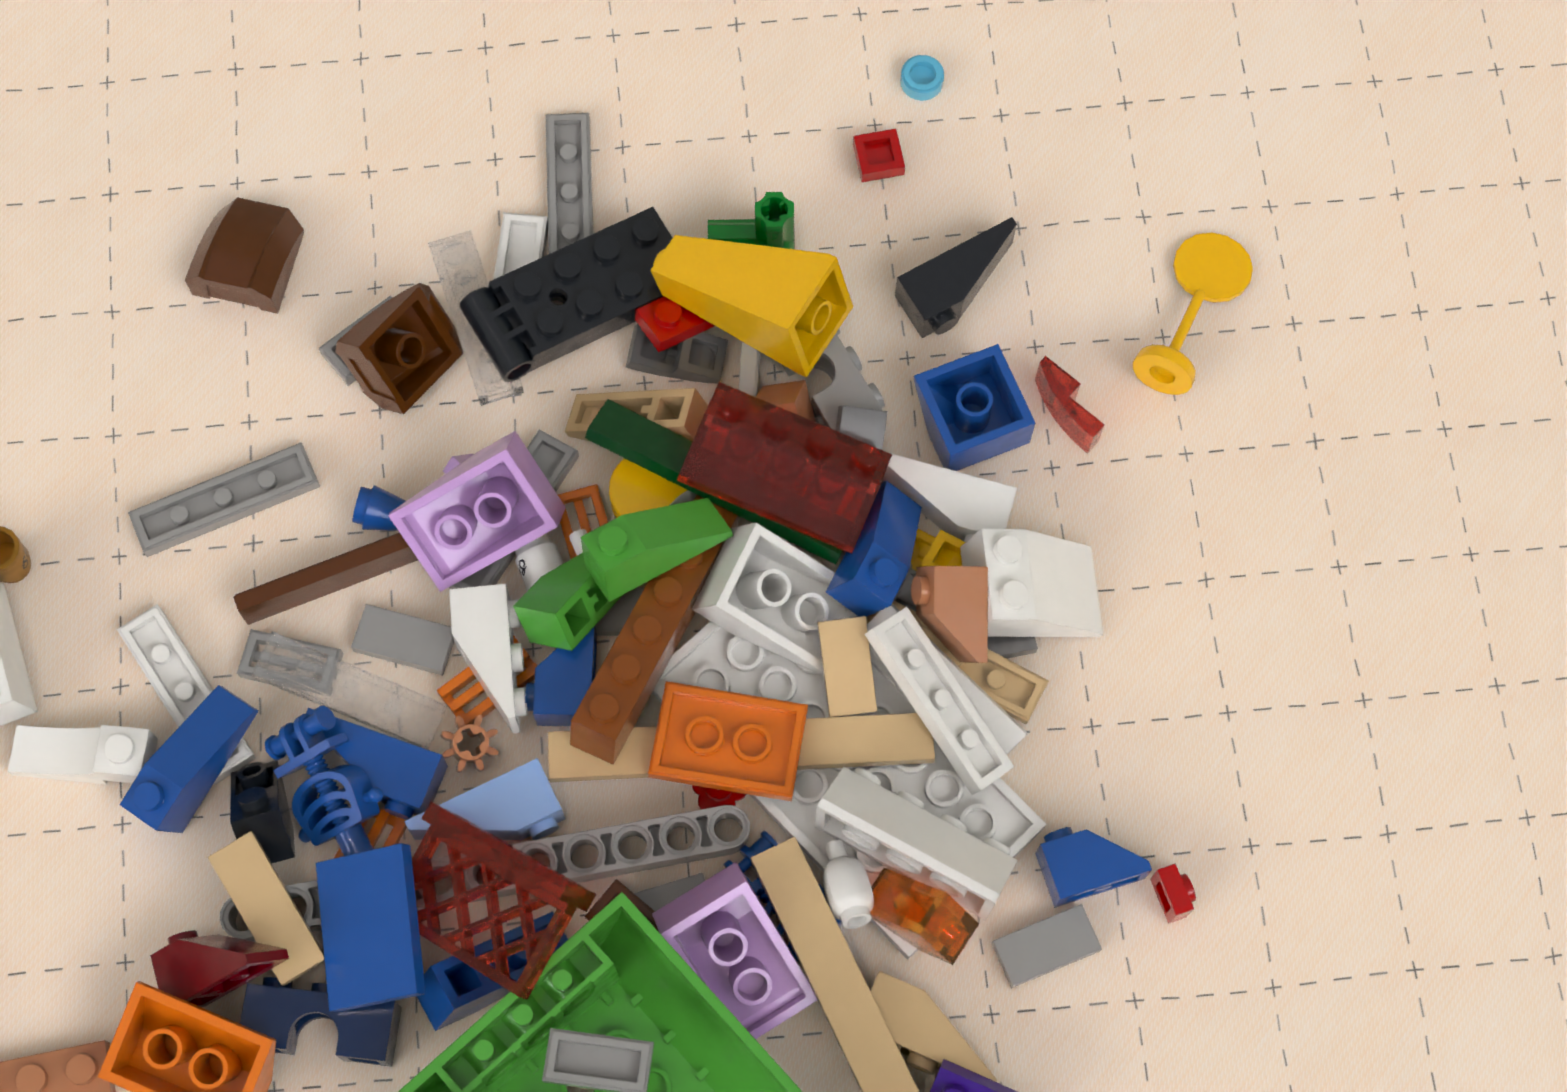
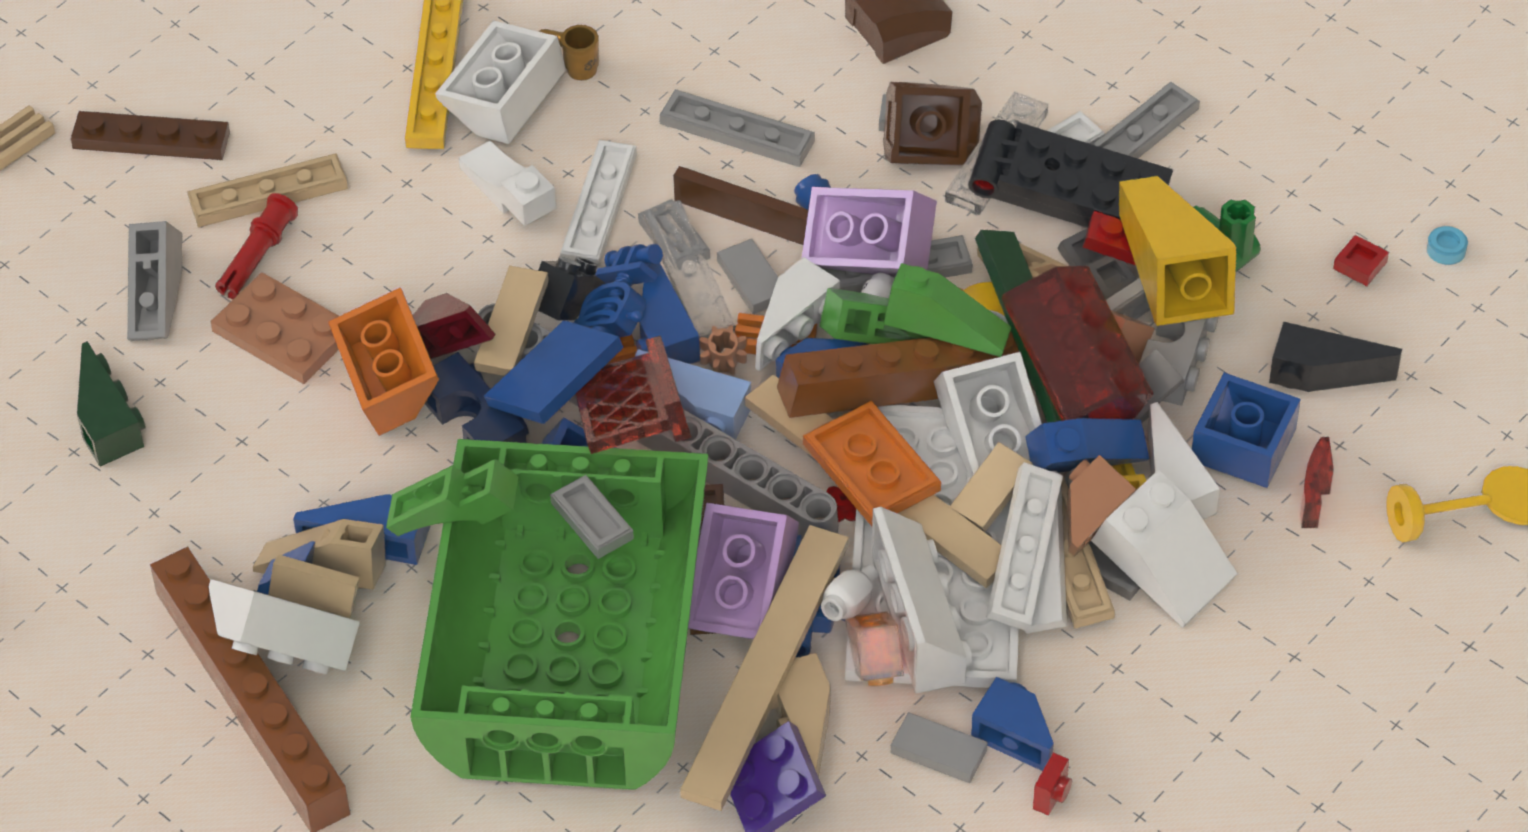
camera: 50 degrees right, 20 degrees down
(189, 762) = (555, 226): blue slope -> none

